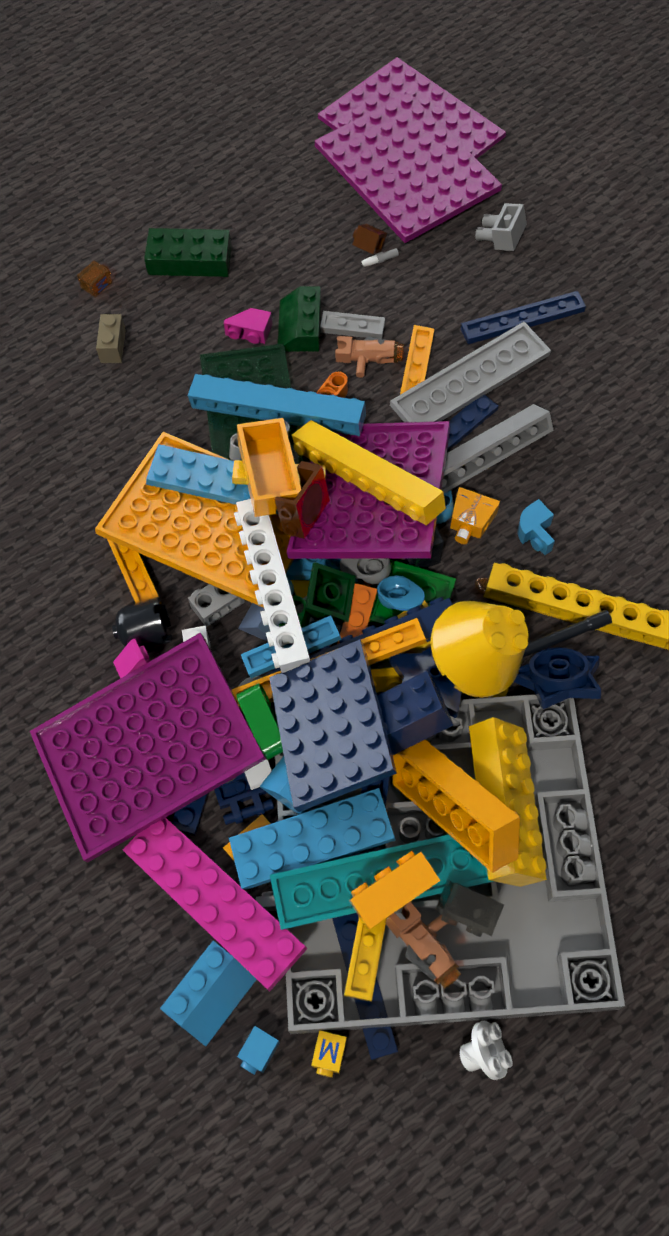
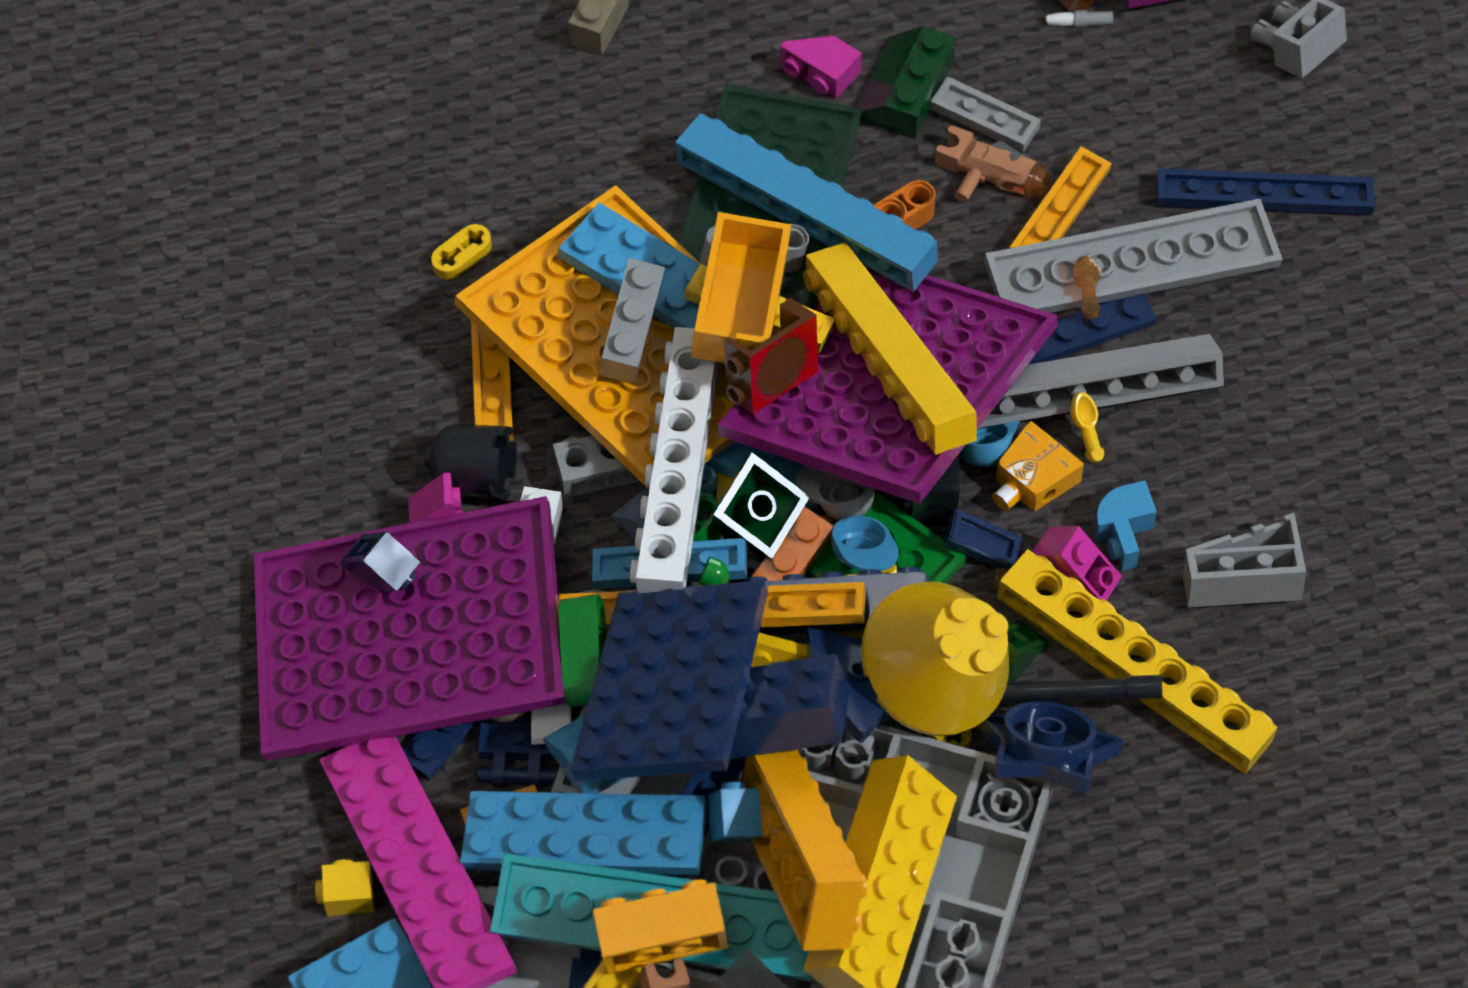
camera: 20 degrees right, 5 degrees down
(83, 500) = (463, 253): none -> yellow beam
(113, 710) = (381, 562): none -> slope
(171, 928) = (346, 888): none -> yellow brick
(209, 507) = (631, 320): none -> light grey brick
(323, 644) = (714, 572): none -> green hinge
(401, 792) = (734, 813): none -> dark azure brick
(452, 395) = (1086, 277): none -> clear orange piece
(461, 566) = (981, 540): none -> dark blue tile
(487, 474) = (1085, 416): none -> yellow piece
(520, 557) = (1079, 558): none -> dark pink slope
(618, 529) = (1247, 568): none -> light grey wedge

